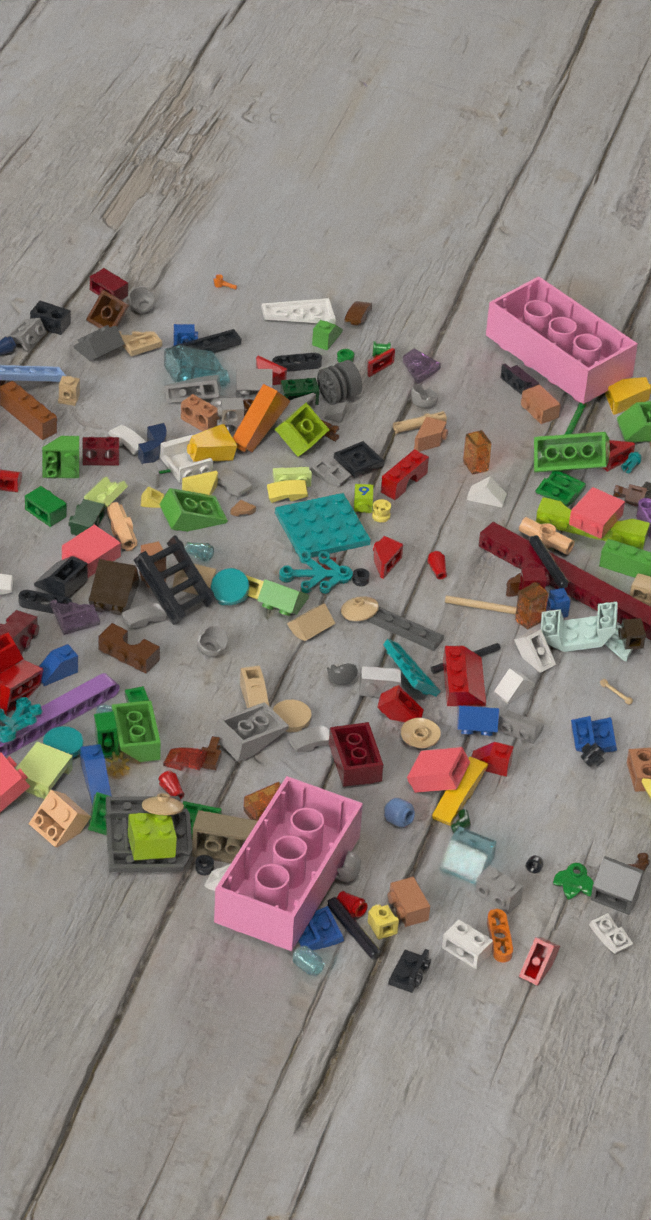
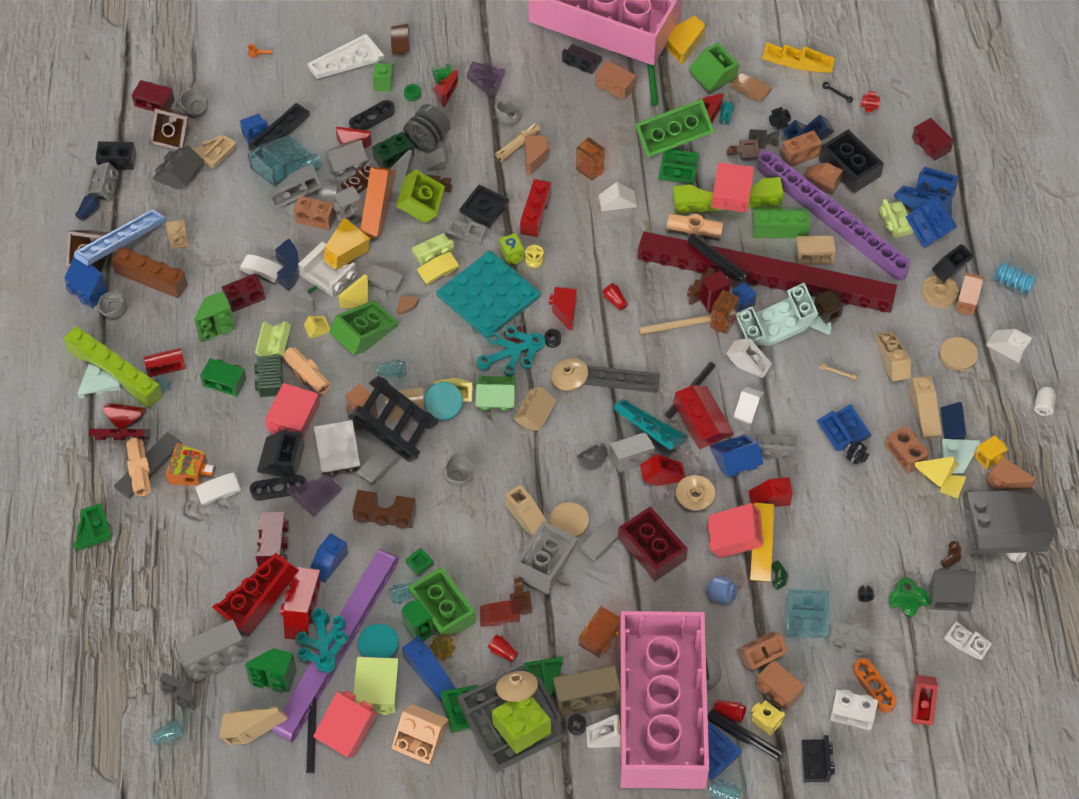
camera: 20 degrees left, 15 degrees up
(408, 866) = (762, 650): none -> nougat brick

